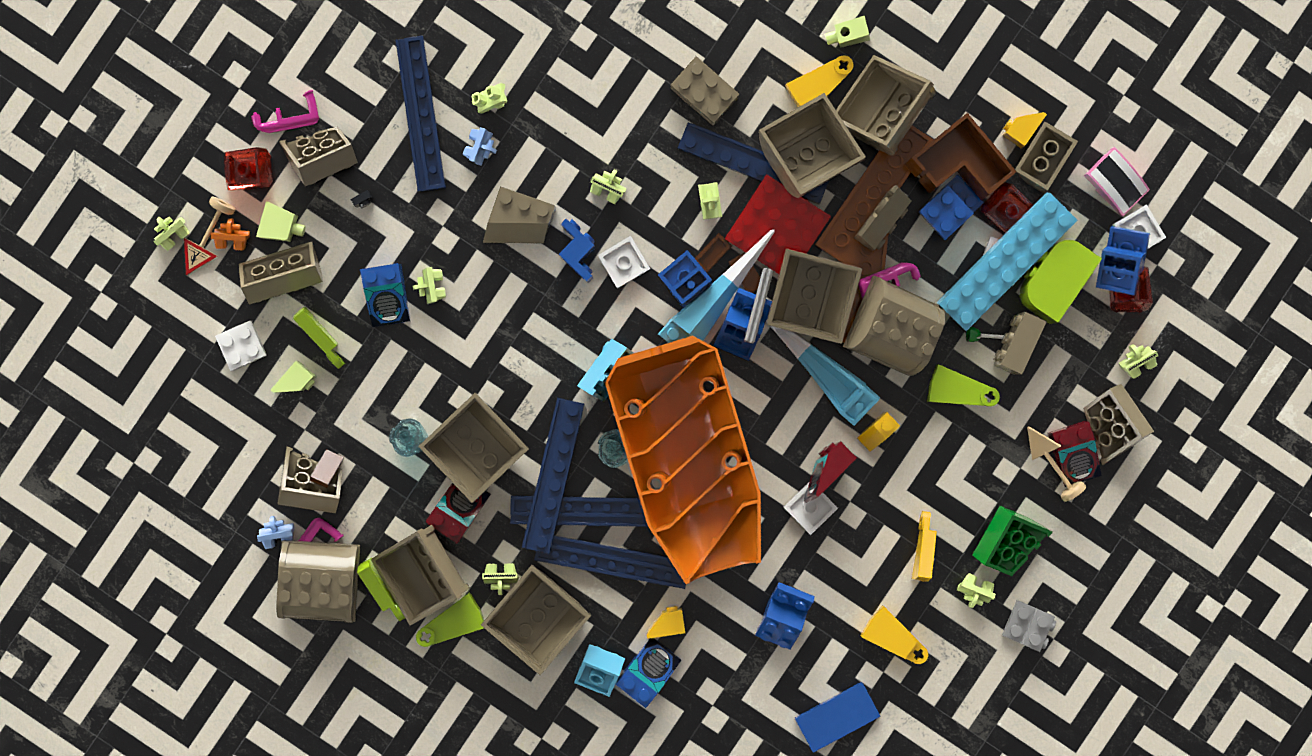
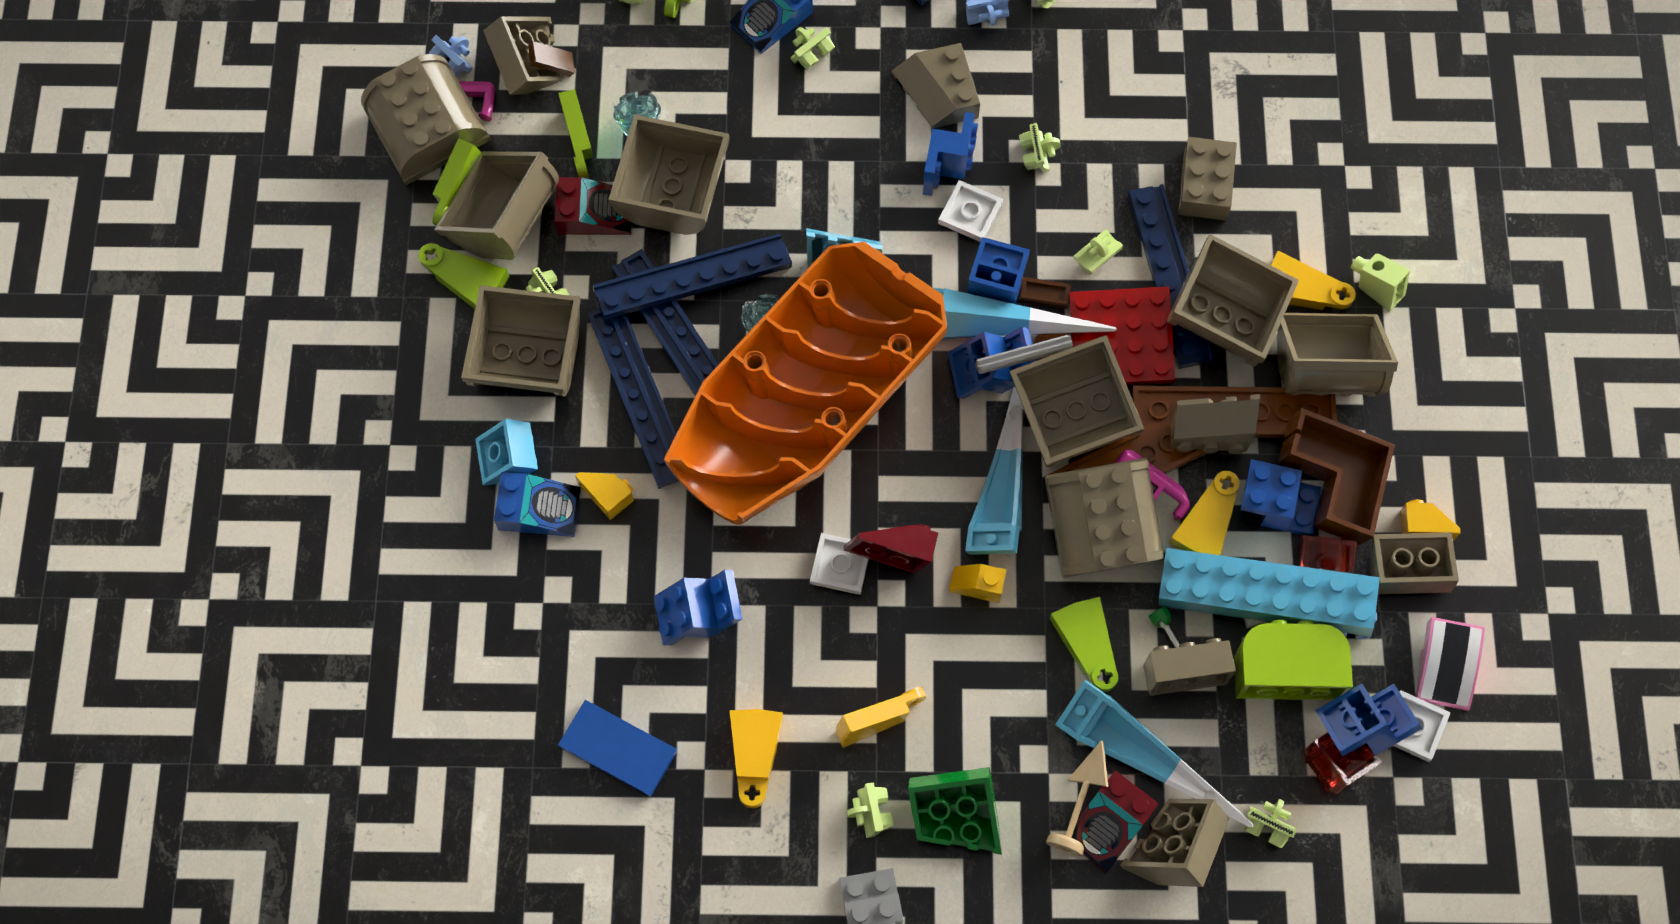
camera: 60 degrees right, 20 degrees down
(395, 485) = (576, 130): none -> lime piece
(933, 262) = (1209, 519): none -> yellow piece
(1013, 418) = (1098, 717): none -> medium azure plate

